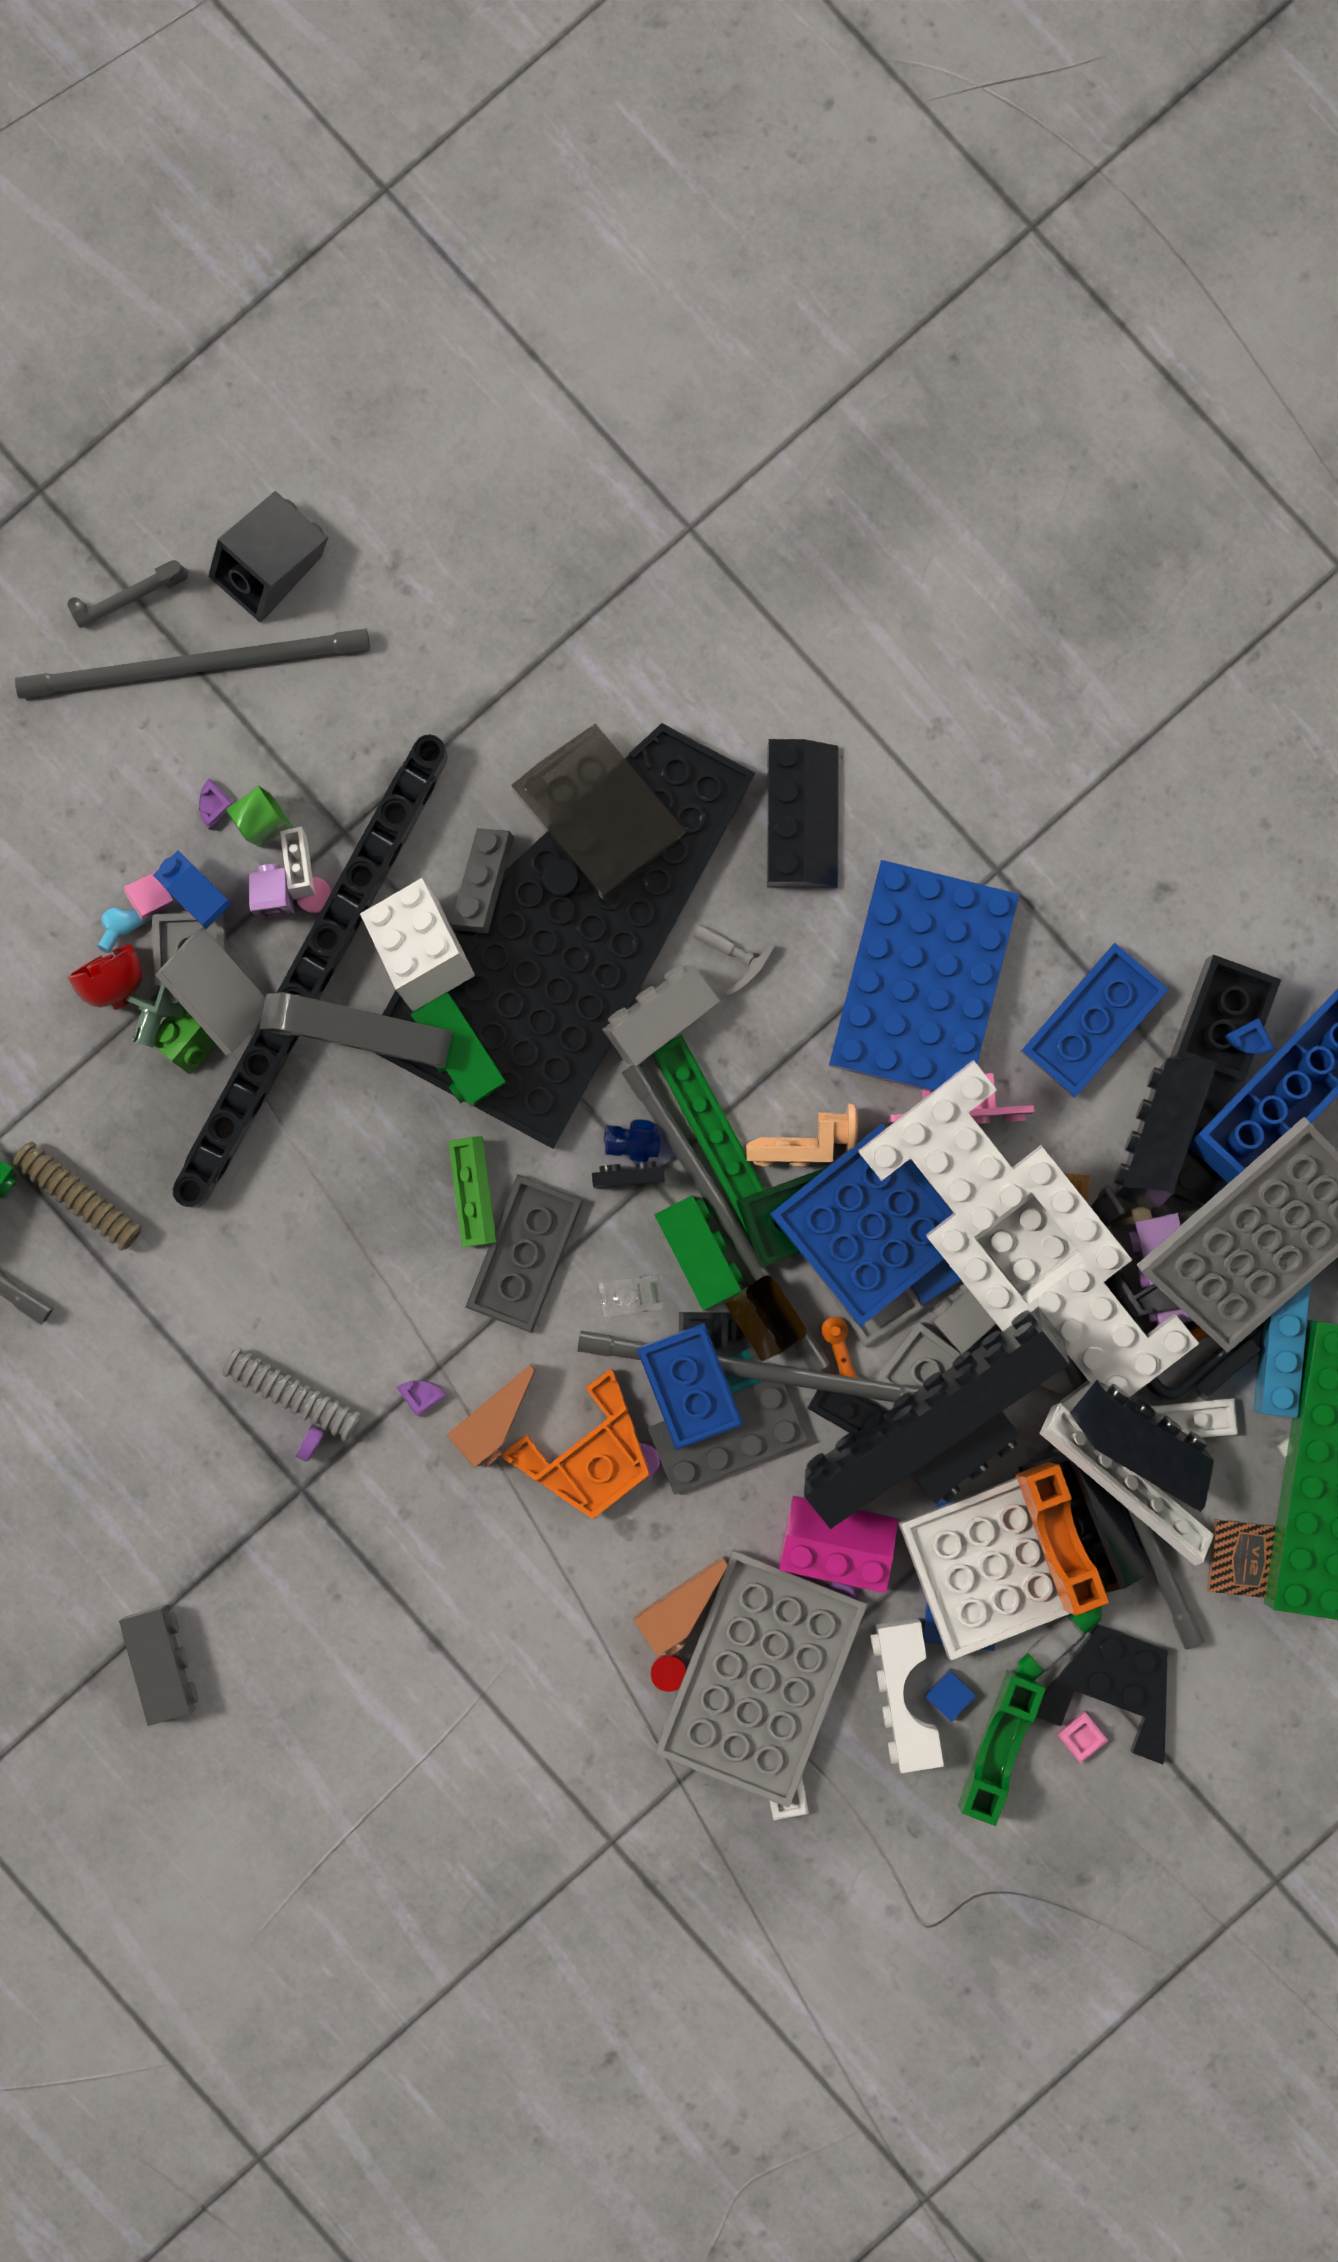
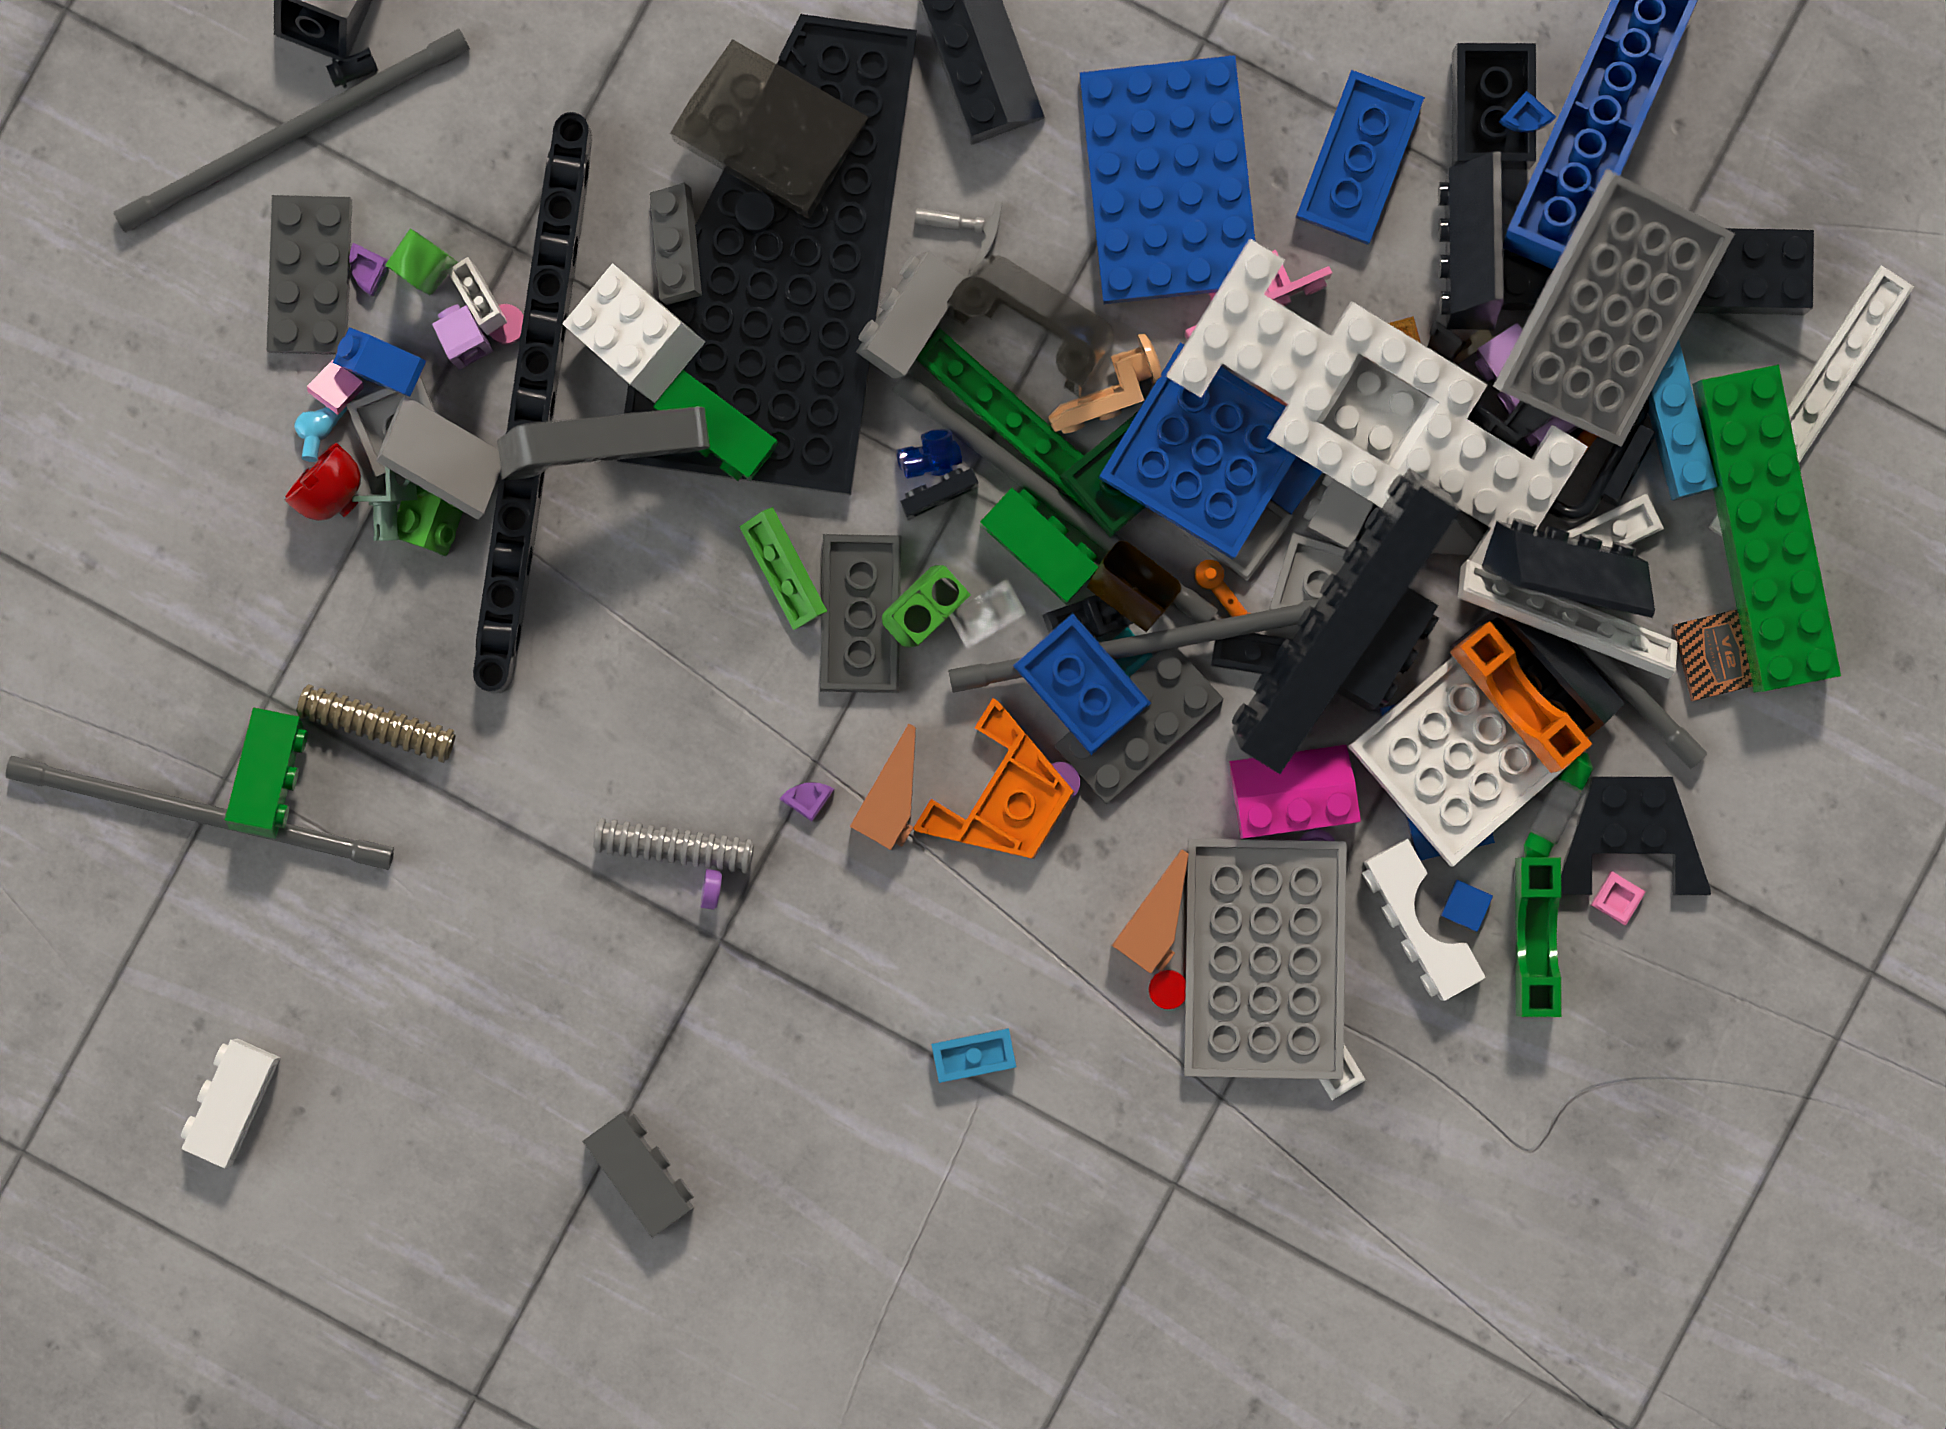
camera: 15 degrees left, 0 degrees up
(162, 790) = (308, 273): none -> dark grey plate
(166, 575) = (232, 48): dark grey hinge -> none
(263, 629) = (351, 68): none -> black pin
(481, 1668) = (973, 1055): none -> dark azure plate
(589, 1280) = (925, 583): none -> bright green piece
(802, 1083) = (1083, 333): none -> clear smoke windscreen

